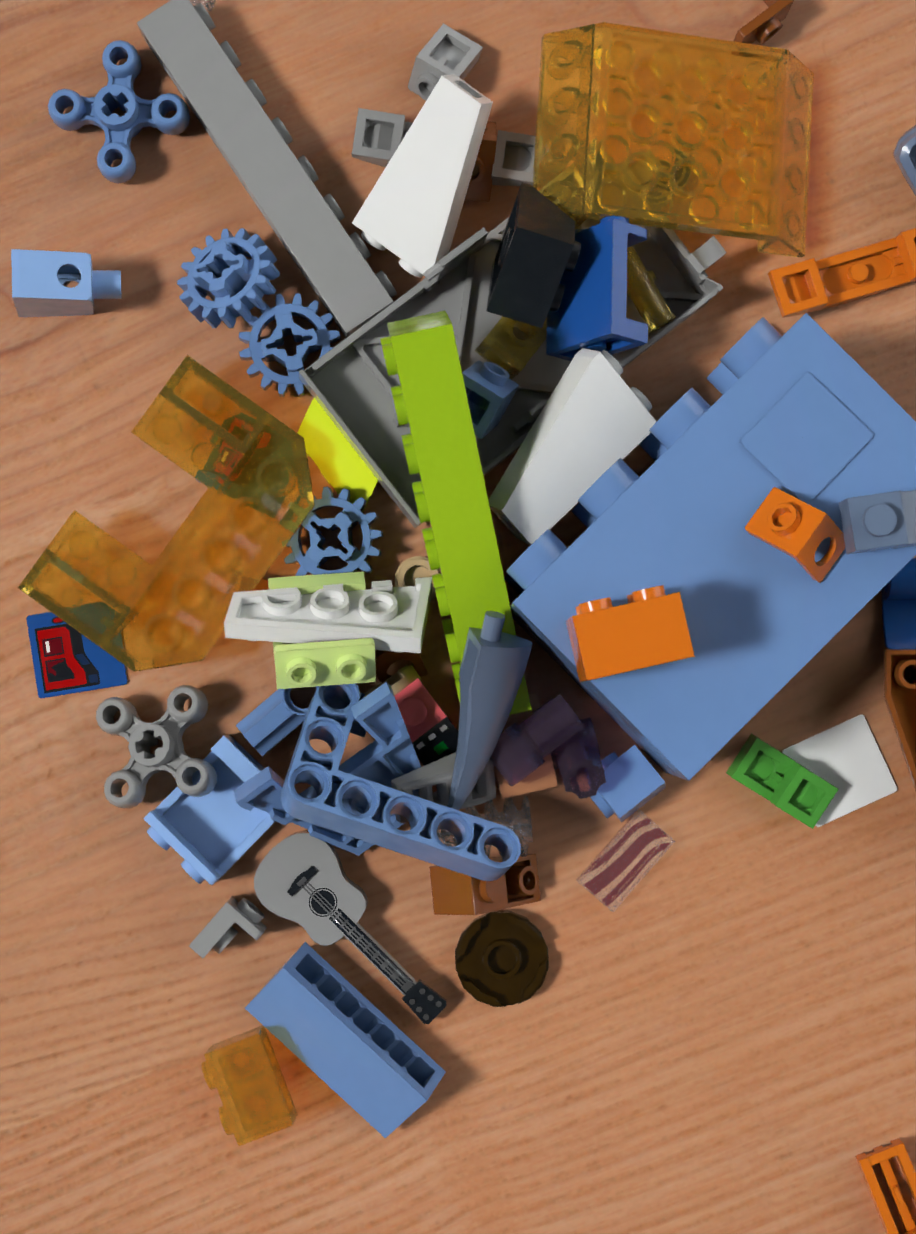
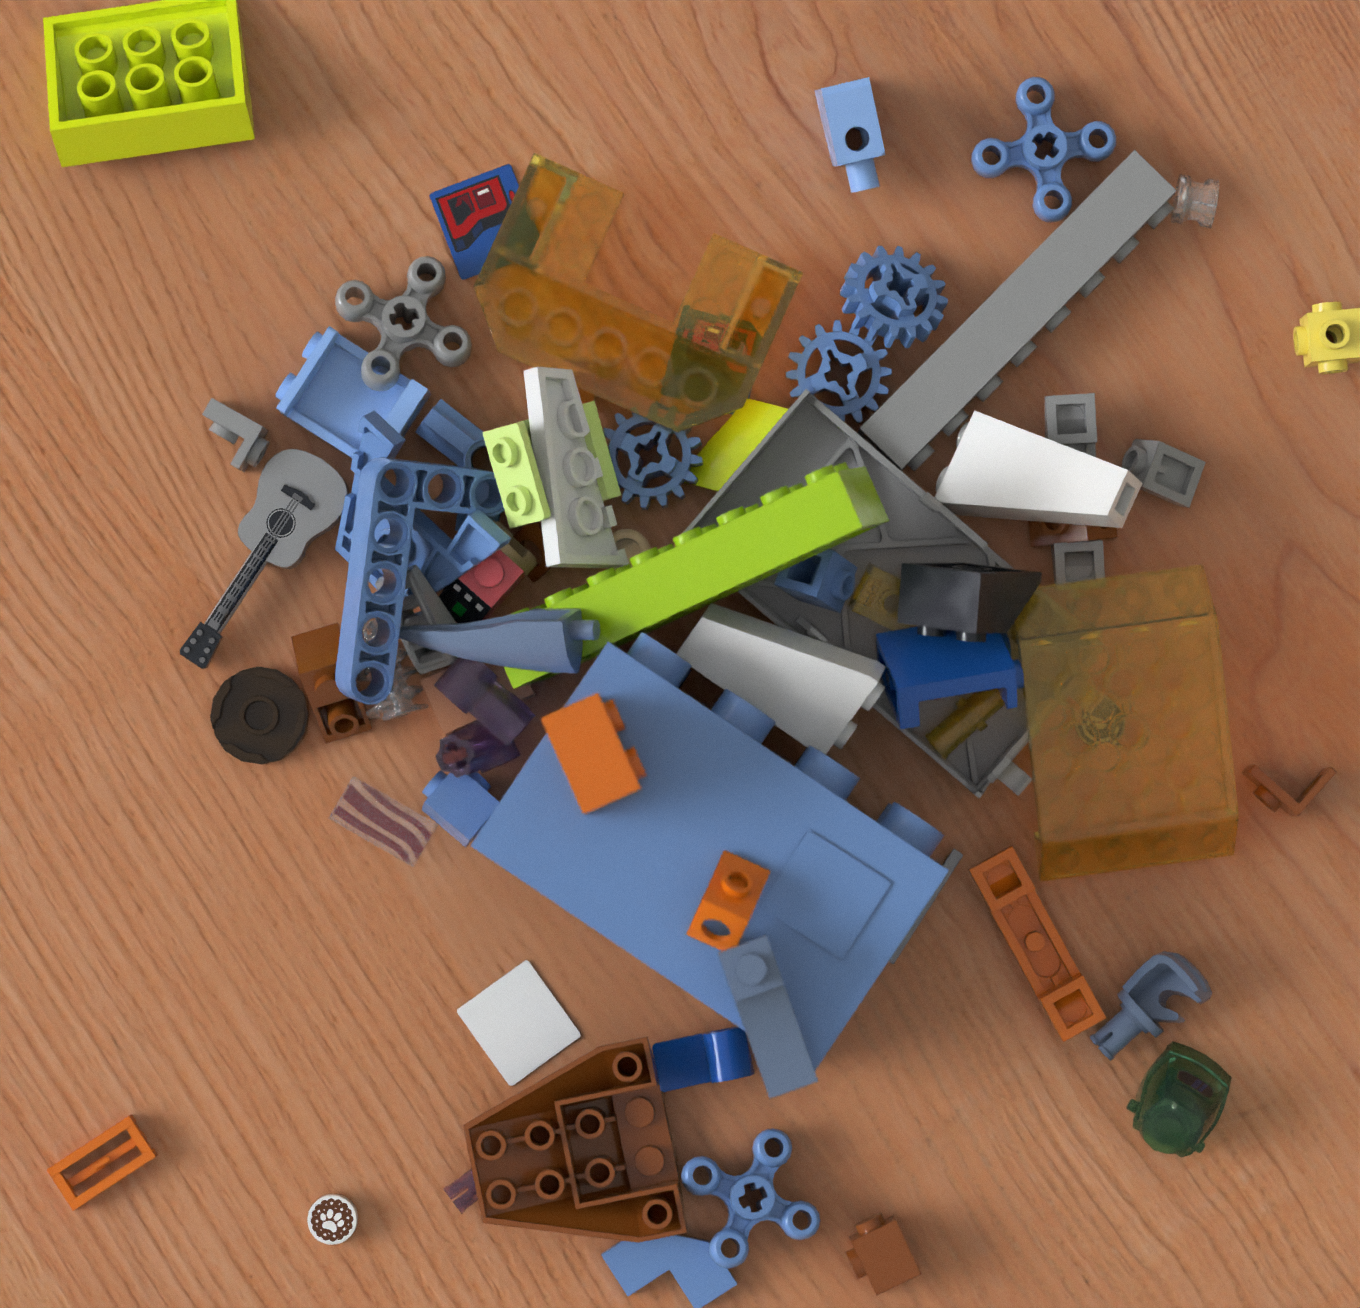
camera: 80 degrees right, 0 degrees up
(249, 1086) = (84, 486): clear yellow brick -> none
(346, 1040) = (147, 574): medium blue brick -> none
(782, 781) = (495, 964): bright green slope -> none

